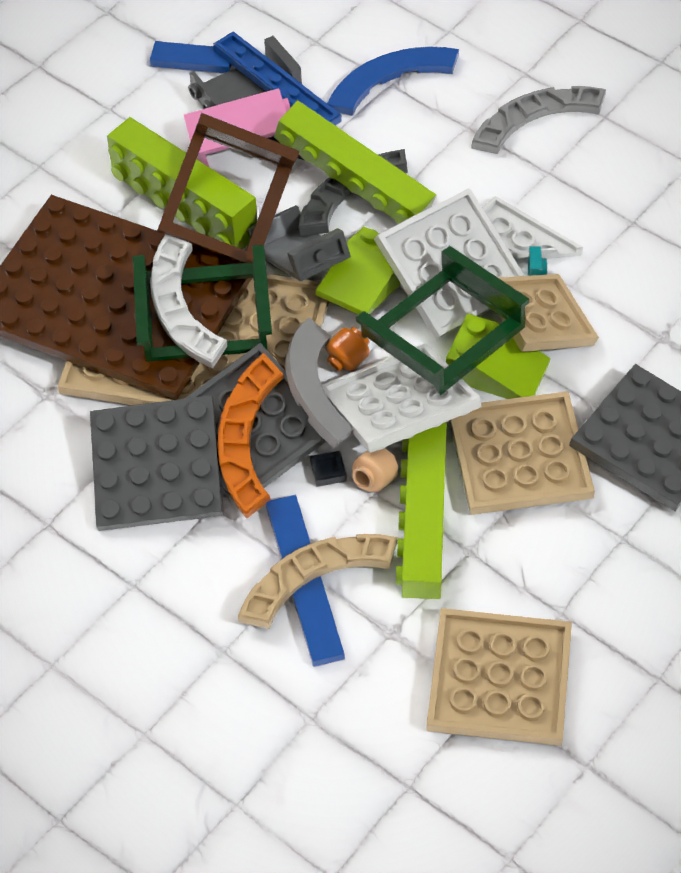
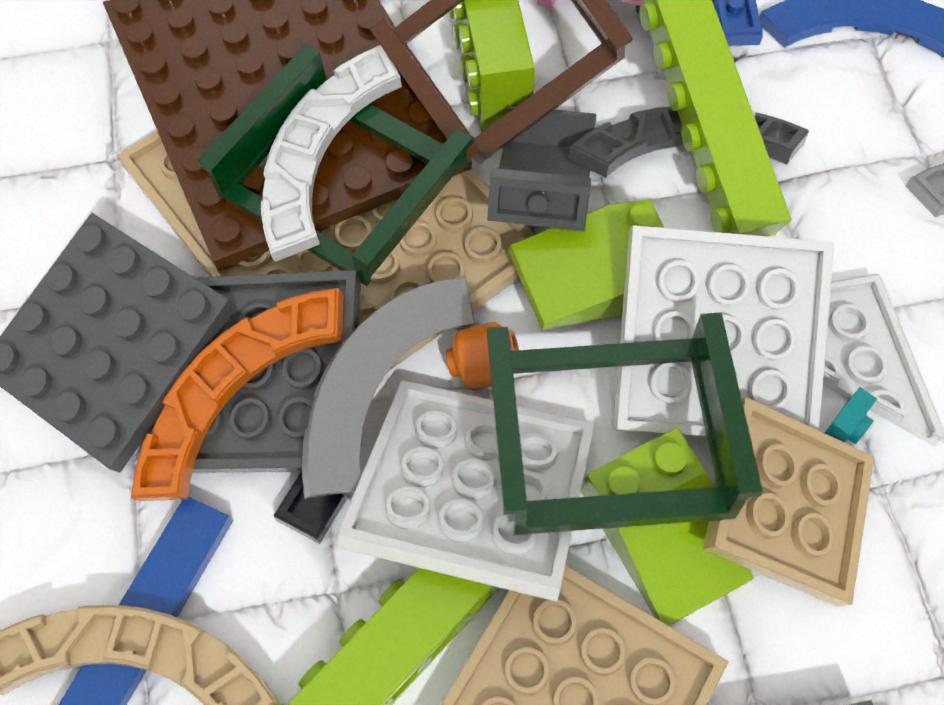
camera: 40 degrees right, 10 degrees up
(374, 470) = (350, 573): light nougat head -> none

